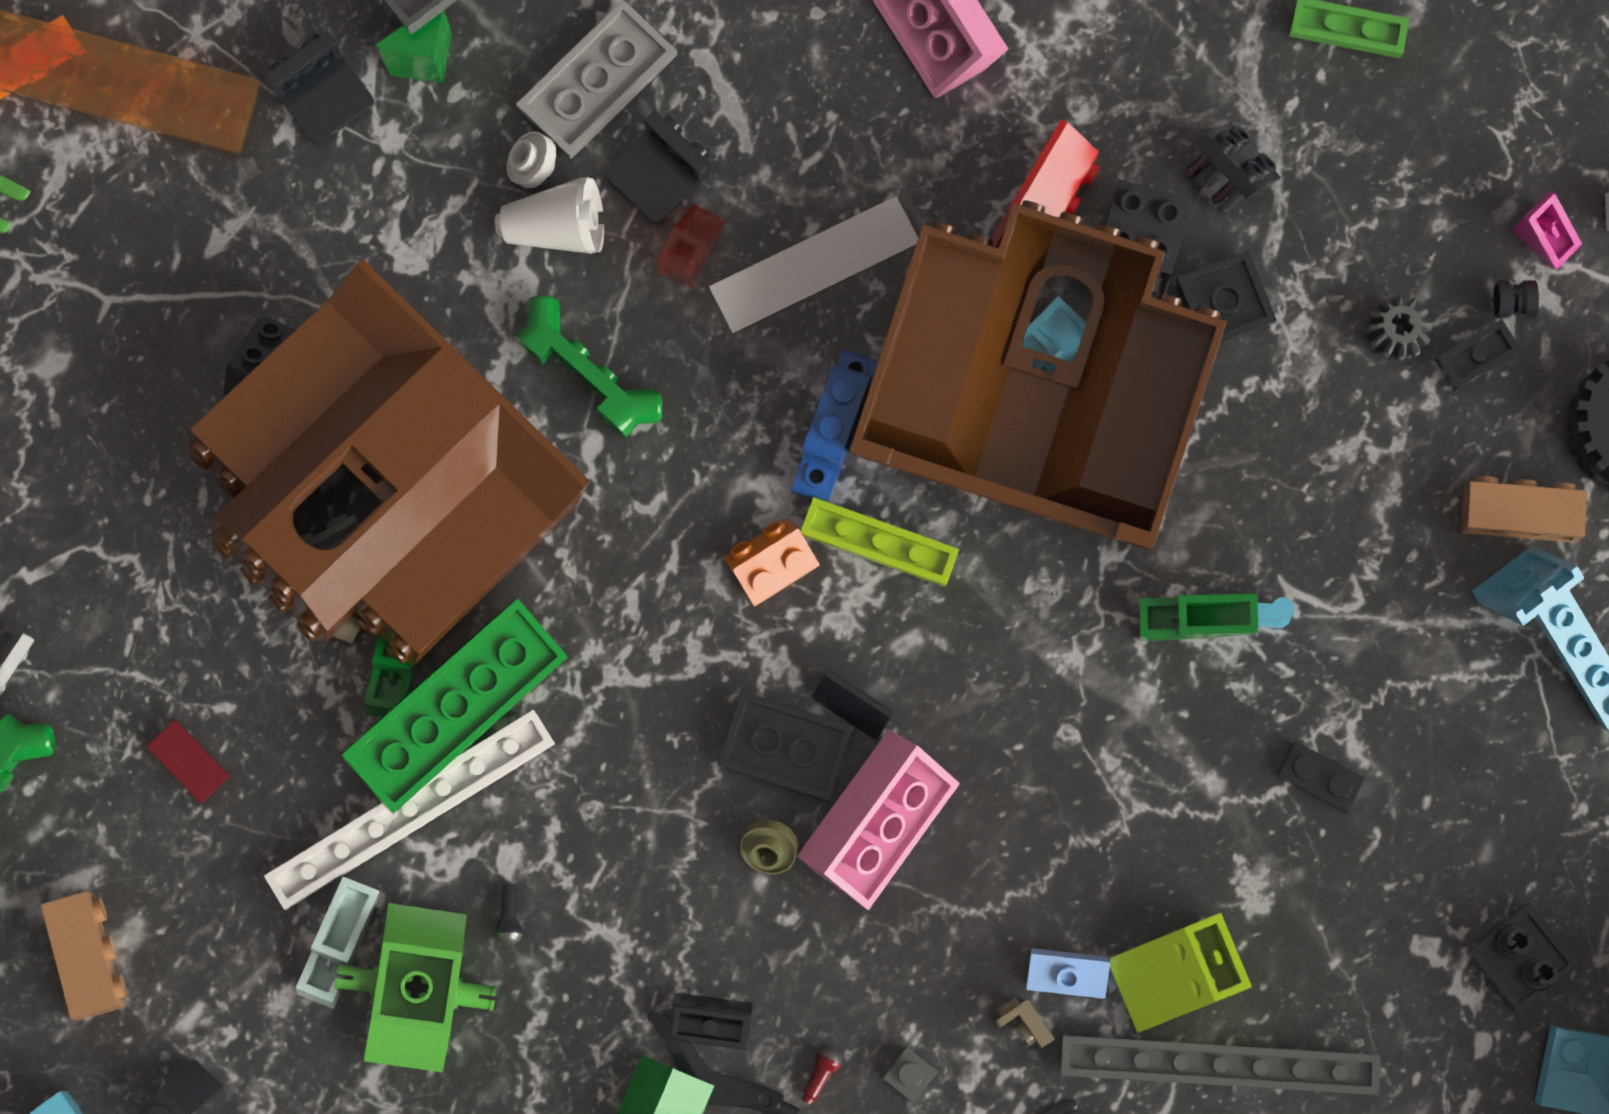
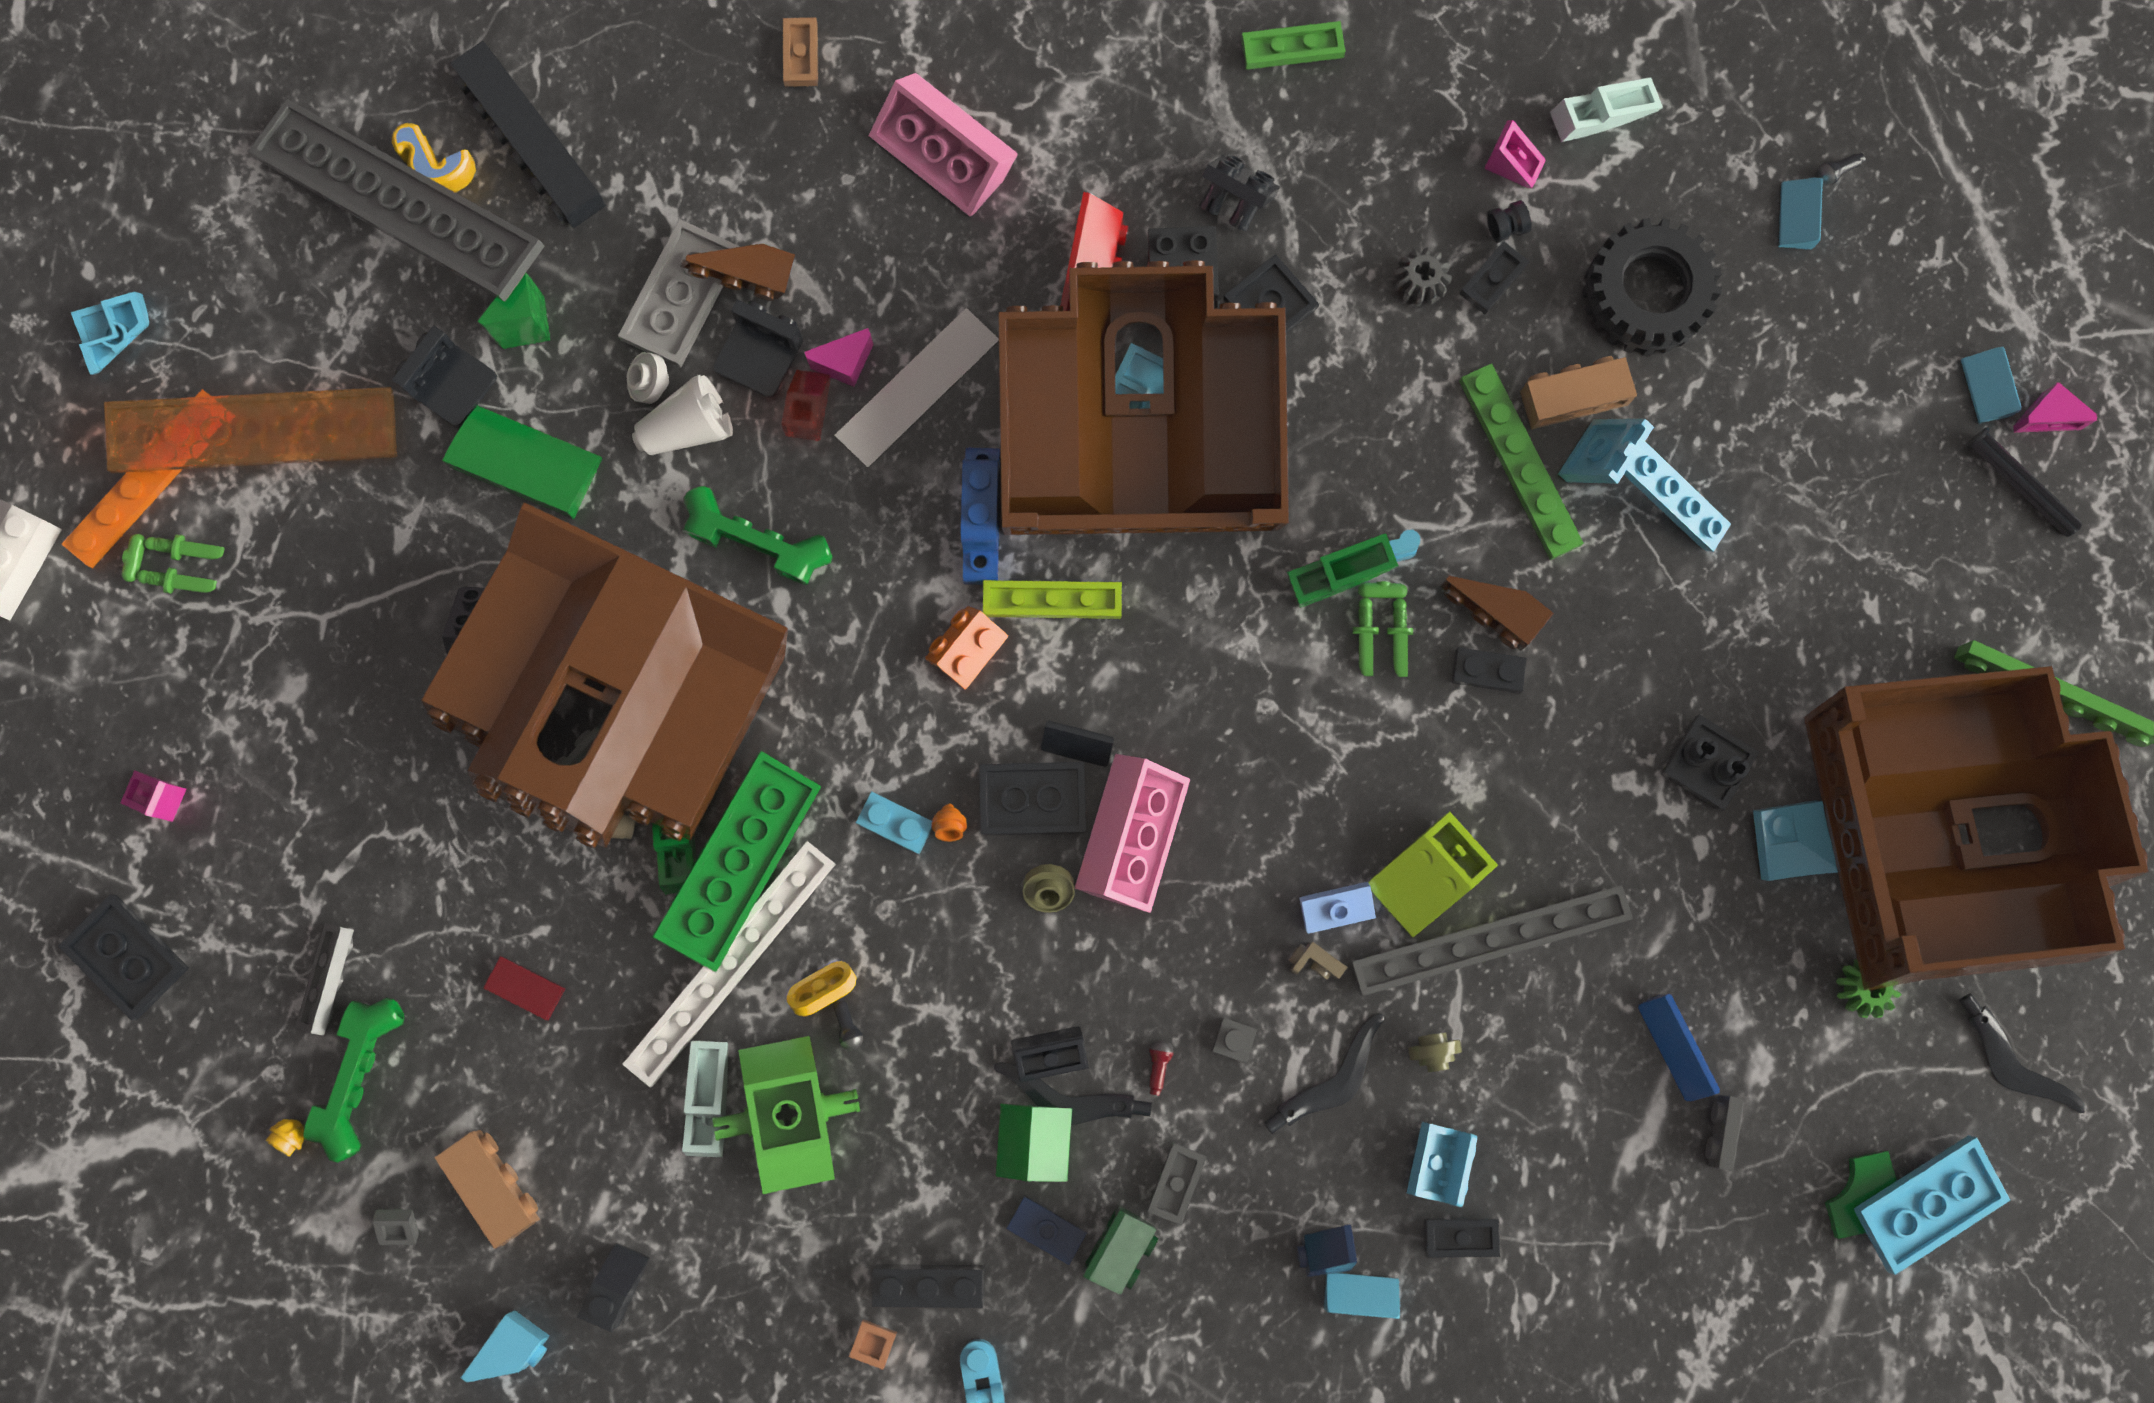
camera: 20 degrees left, 0 degrees up
(371, 204) = (522, 461): none -> green slope
(496, 869) = (821, 988): none -> yellow plate
(632, 722) = (895, 823): none -> medium azure plate
(683, 79) = (749, 267): none -> reddish brown slope
(688, 742) = (949, 824): none -> orange plate
(745, 207) = (842, 357): none -> dark pink slope
(1202, 690) = (1400, 631): none -> bright green piece
(1362, 720) = (1506, 610): none -> reddish brown slope
(1436, 564) = (1521, 462): none -> bright green plate

